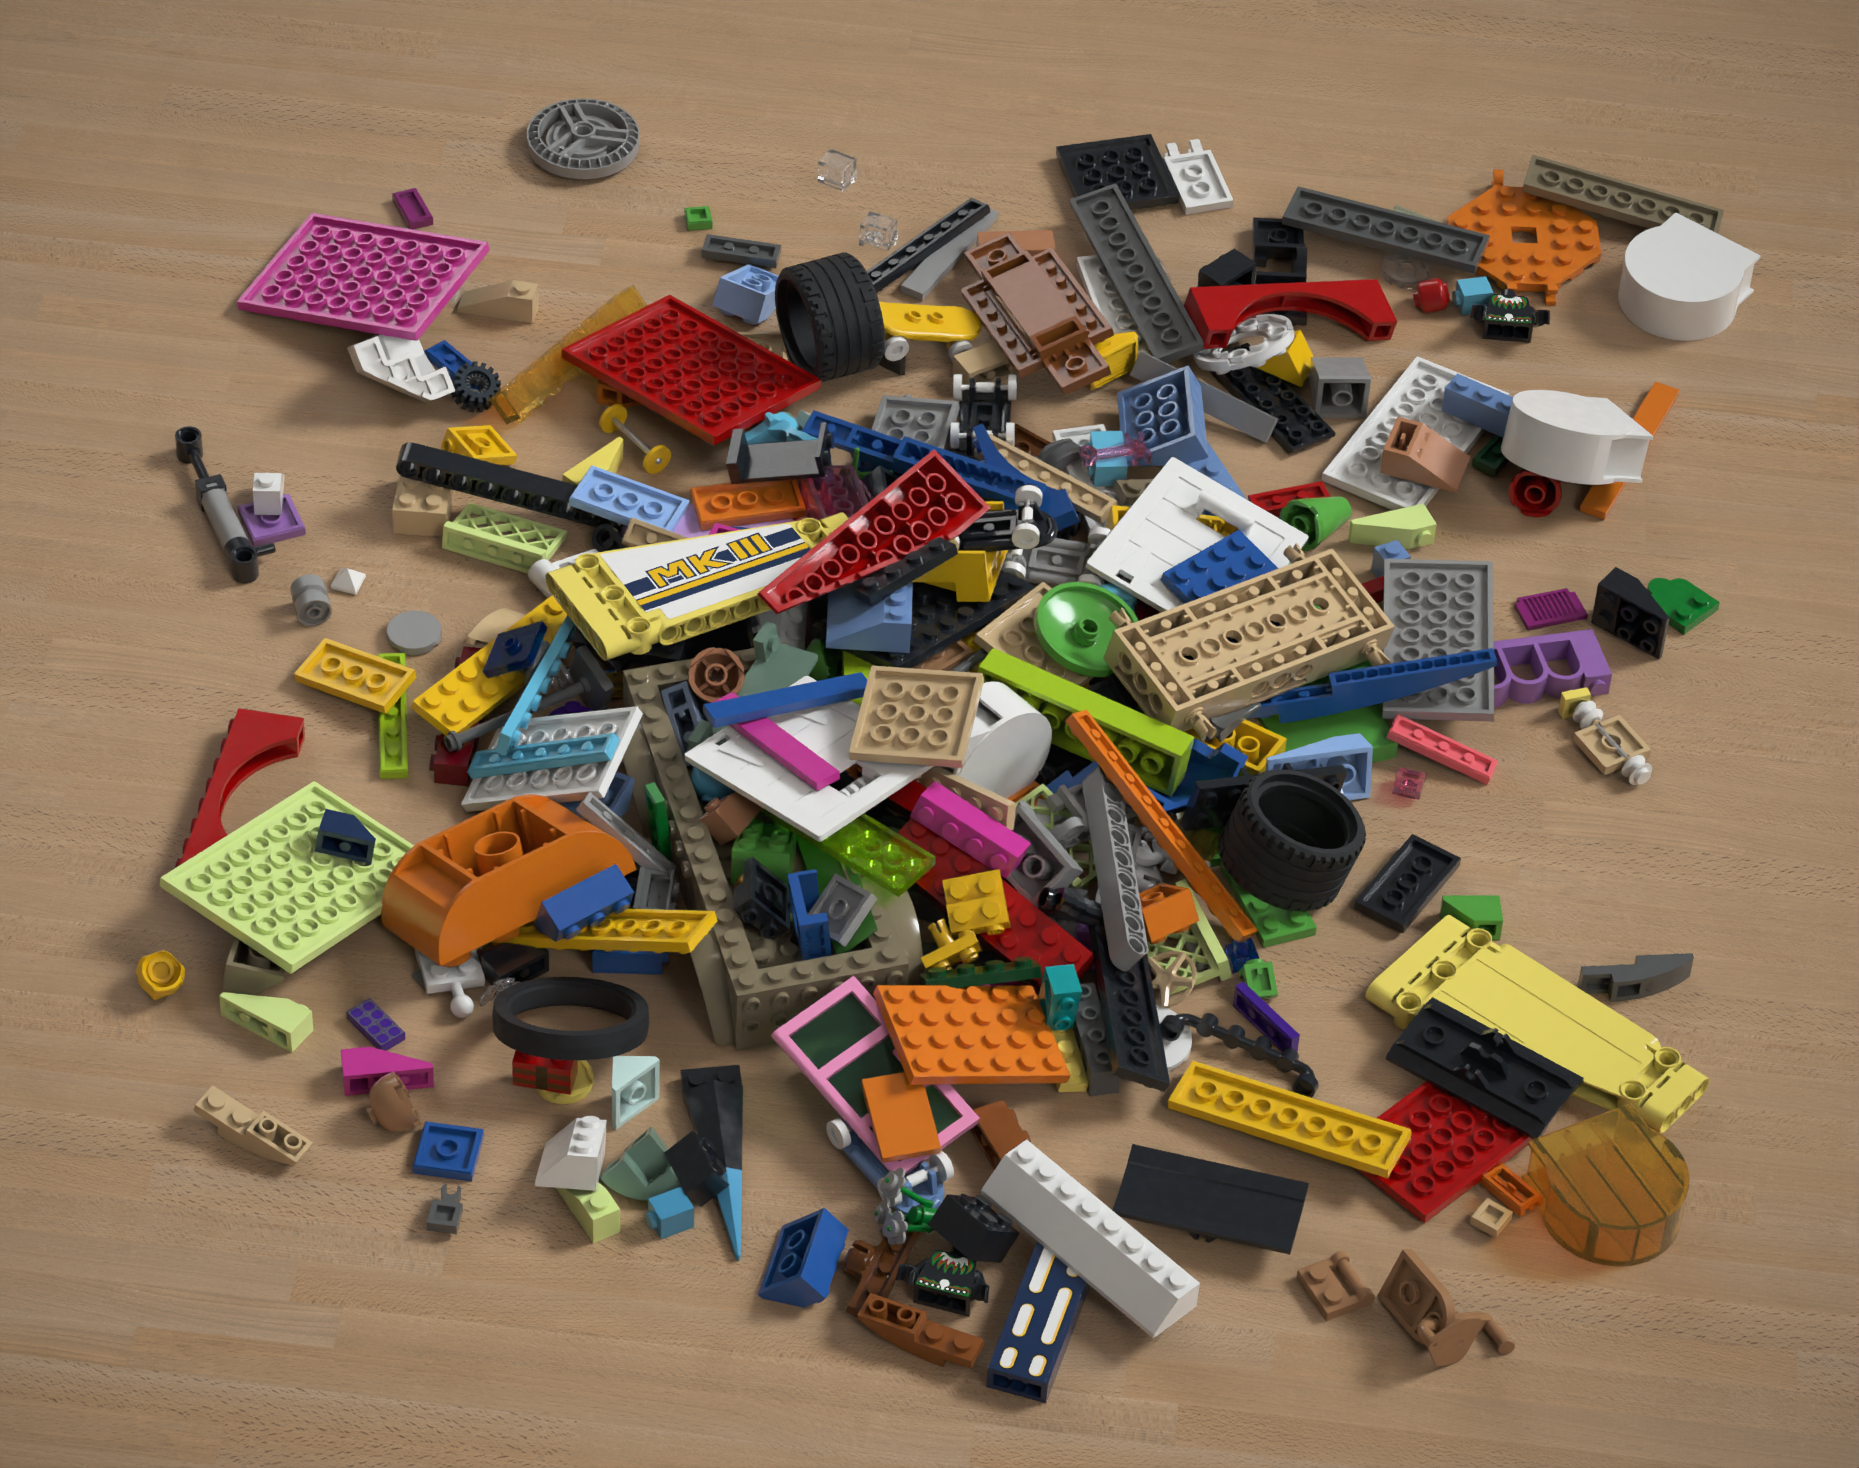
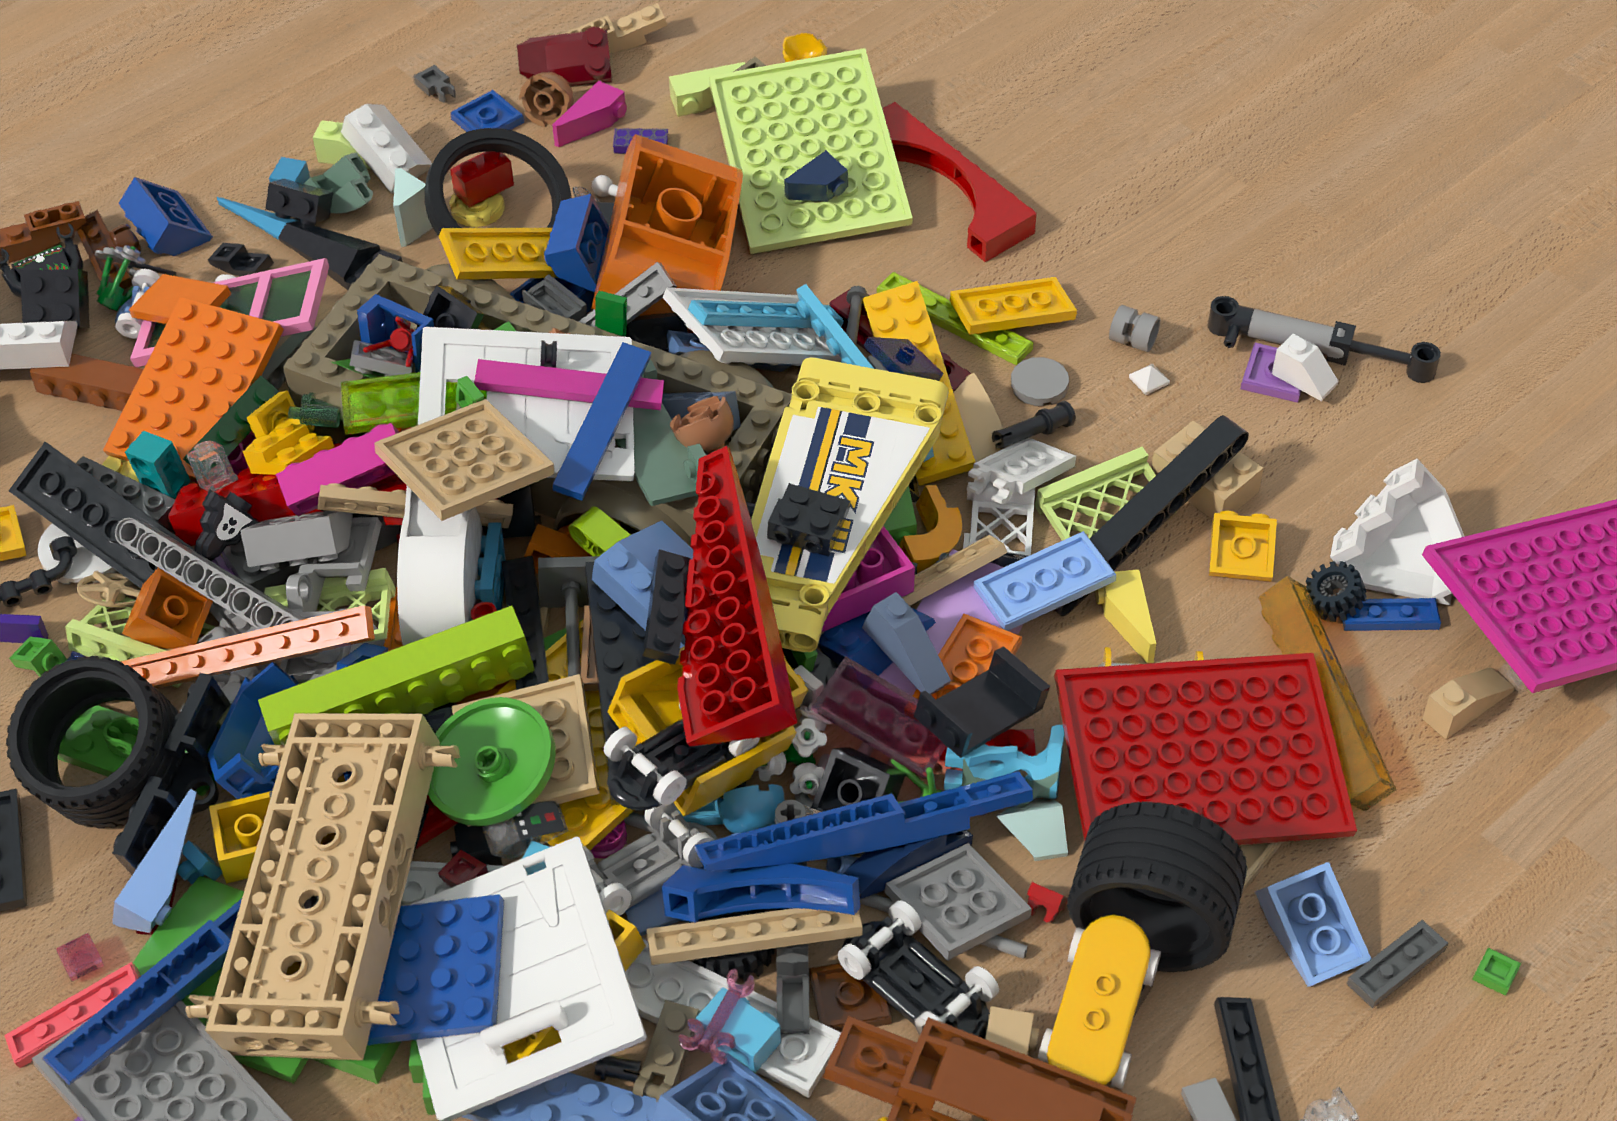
camera: 135 degrees right, 5 degrees up
(319, 1123) = (577, 57): none -> dark red slope
(463, 598) = (1044, 422): none -> black pin
(521, 576) = (1019, 468): none -> white tile
(757, 552) = (807, 519): none -> black plate
(765, 758) = (548, 354): none -> black bush
(772, 508) = (906, 643): none -> sand blue slope
(790, 1179) = (237, 261): none -> black slope
(810, 909) = (399, 340): none -> red plant
(852, 770) = (467, 392): none -> bright green tile
(852, 1215) = (156, 269): none -> black hinge
(863, 401) = (1049, 899): none -> red tile
(933, 904) = (316, 412): none -> clear green plant
(1034, 943) = (201, 461): none -> clear brick

